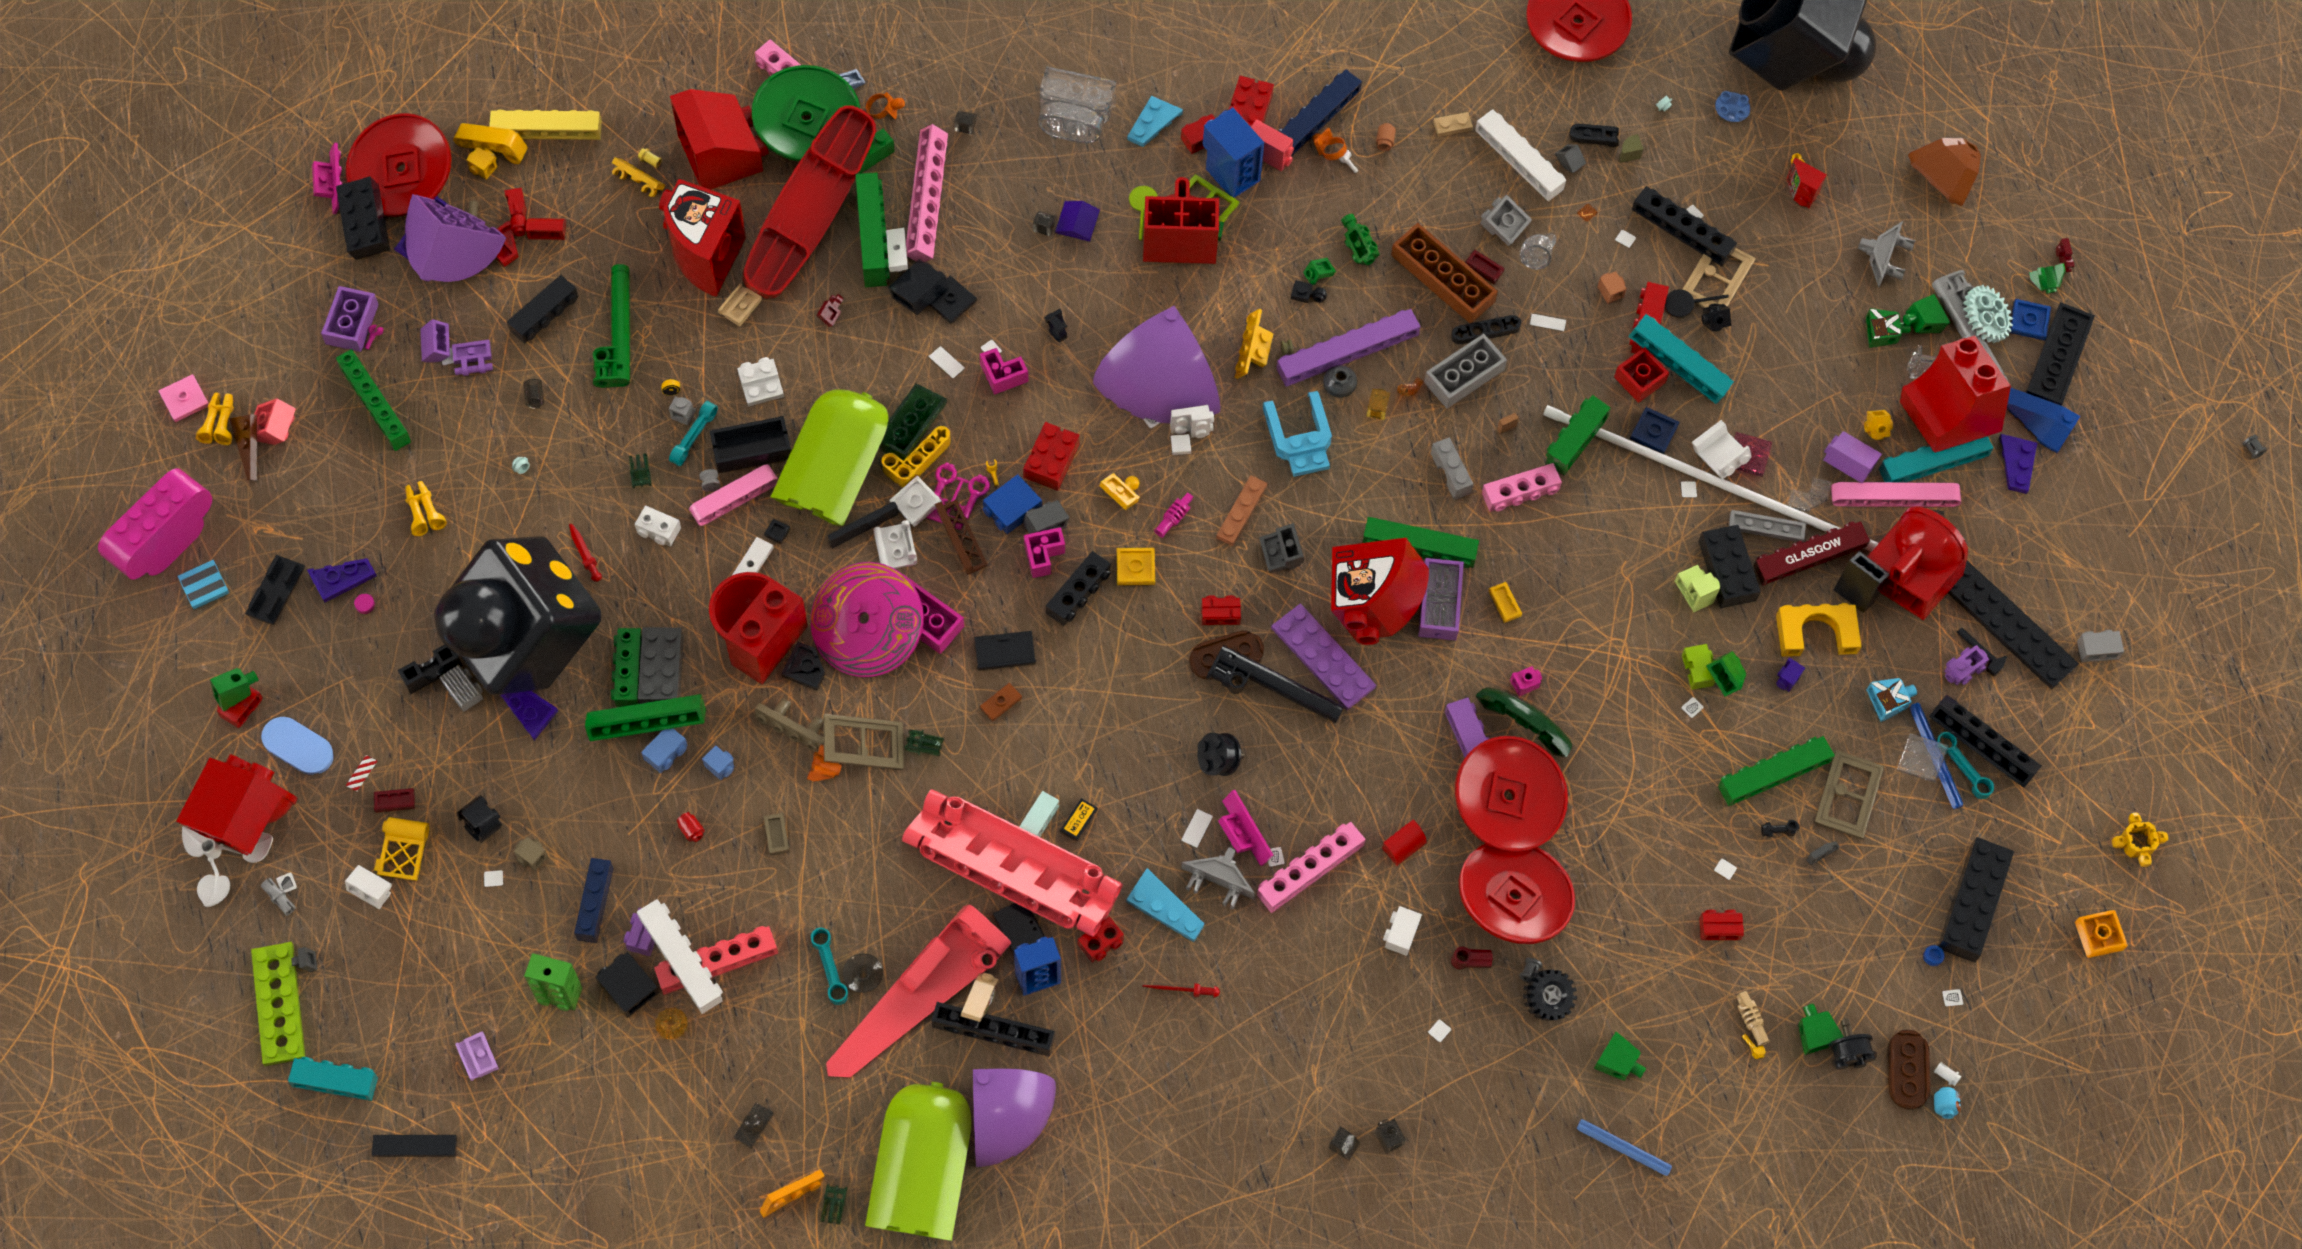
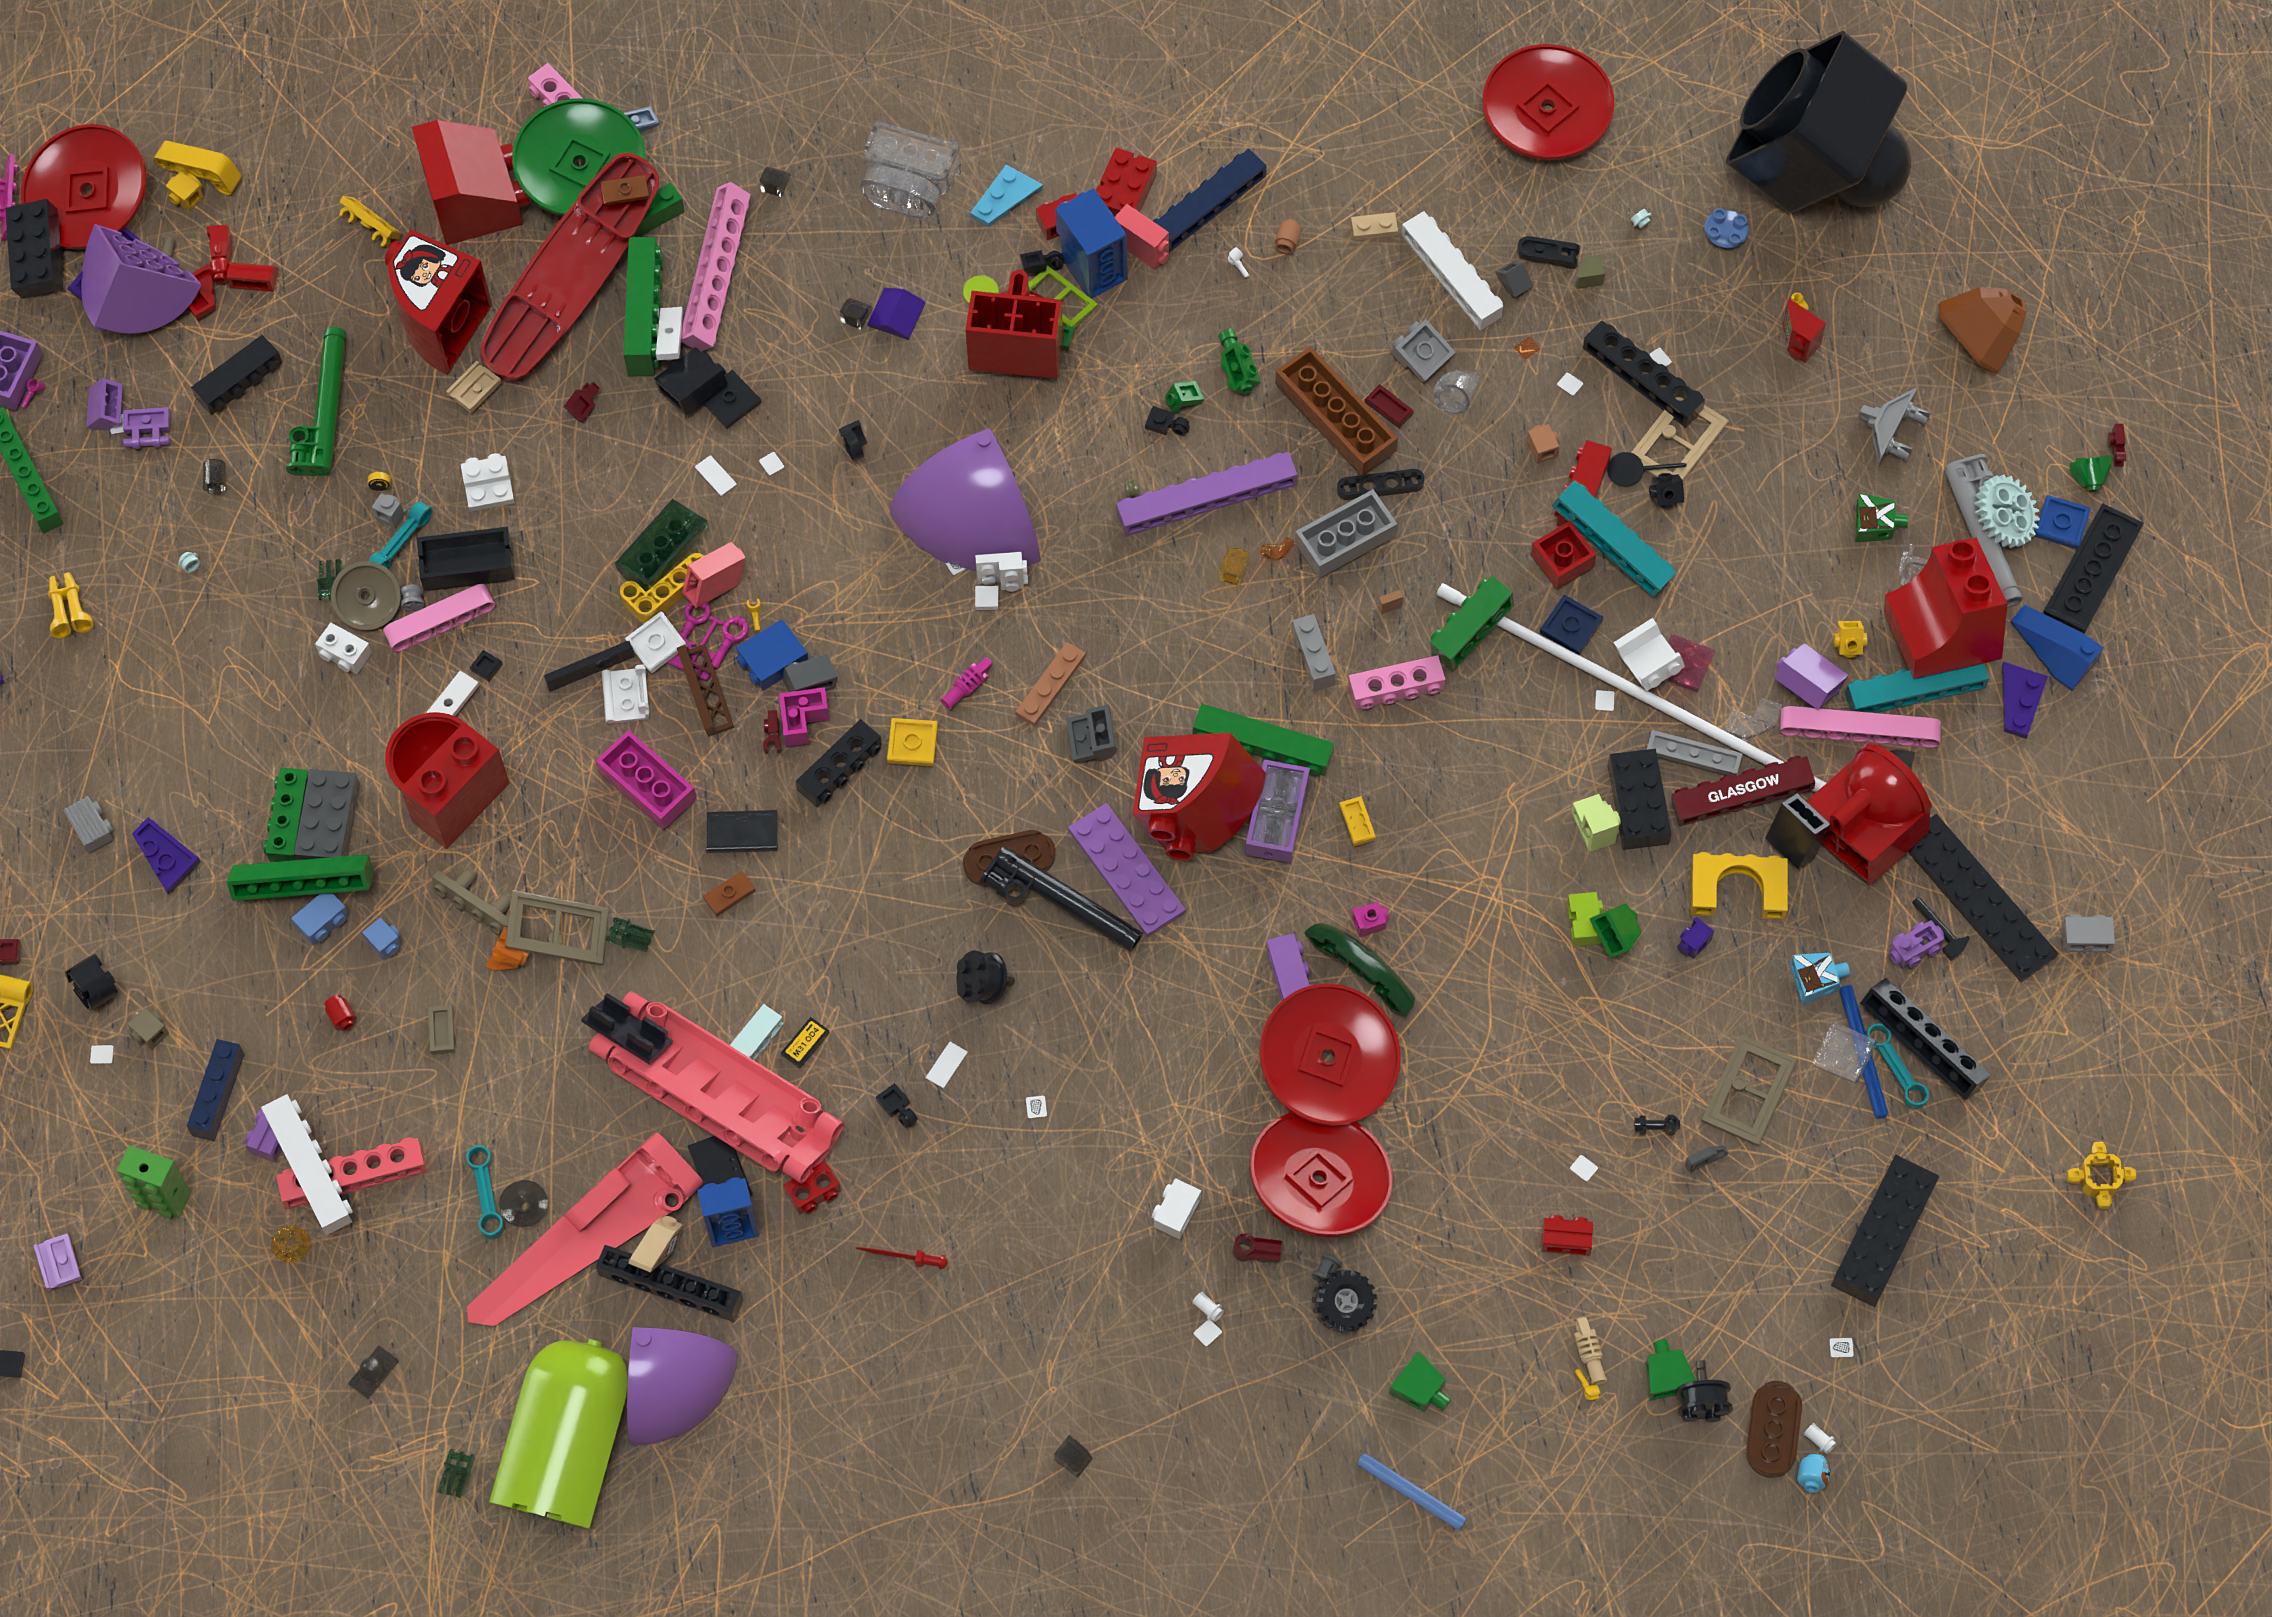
camera: 10 degrees right, 0 degrees up
(420, 675) = (39, 806): black arch -> none
(516, 615) = (156, 742): black piece -> none
(550, 124) = (270, 149): light yellow brick -> none
(588, 561) = (256, 685): red sword -> none
(627, 984) = (243, 1192): black brick -> none
(650, 158) = (383, 196): light yellow pin -> none
(685, 481) = (382, 600): none -> dark tan dish
(791, 1192) = (407, 1454): light orange wing -> none
(804, 667) = (498, 832): black plate -> none
(832, 455) = (561, 578): lime panel -> none
(849, 135) = (624, 190): none -> dark orange plate
(891, 107) = (686, 158): orange piece -> none
(892, 626) = (608, 784): dark pink dish -> none
(922, 816) = (638, 1037): none -> black brick
(957, 442) = (713, 574): none -> coral brick
(1003, 374) = (780, 496): dark pink brick -> none
(1019, 563) = (771, 726): none -> dark red plate
(1051, 456) = (826, 600): red piece -> none
(1121, 492) = (905, 649): yellow plate -> none
(1159, 862) = (895, 1101): none -> black plate
(1164, 906) = (892, 1153): medium azure wing -> none
(1189, 171) = (1035, 261): none -> black plate
(1219, 871) = (967, 1119): light grey connector -> none
(1221, 610) = (1008, 804): red brick -> none
(1242, 829) = (999, 1071): dark pink bracket -> none
(1255, 345) = (1093, 484): yellow bracket -> none
(1275, 899) = (1071, 1134): bright pink brick -> none
(1303, 451) = (1135, 617): medium azure plate -> none
(1326, 138) = (1210, 234): orange piece -> none
(1340, 388) = (1192, 543): dark grey piece -> none
(1389, 1135) = (1129, 1451): clear smoke brick -> none
(1404, 842) = (1194, 1102): red brick -> none
(1438, 1009) = (1207, 1306): none -> white pin
(1547, 322) = (1459, 481): white sticker -> none
(1692, 707) = (1571, 968): white sticker -> none
(1775, 771) = (1661, 1053): green brick -> none
(1926, 316) = (1930, 508): green torso -> none
(1933, 955) = (1825, 1294): blue tile -> none
(2105, 923) = (2044, 1274): light orange brick -> none

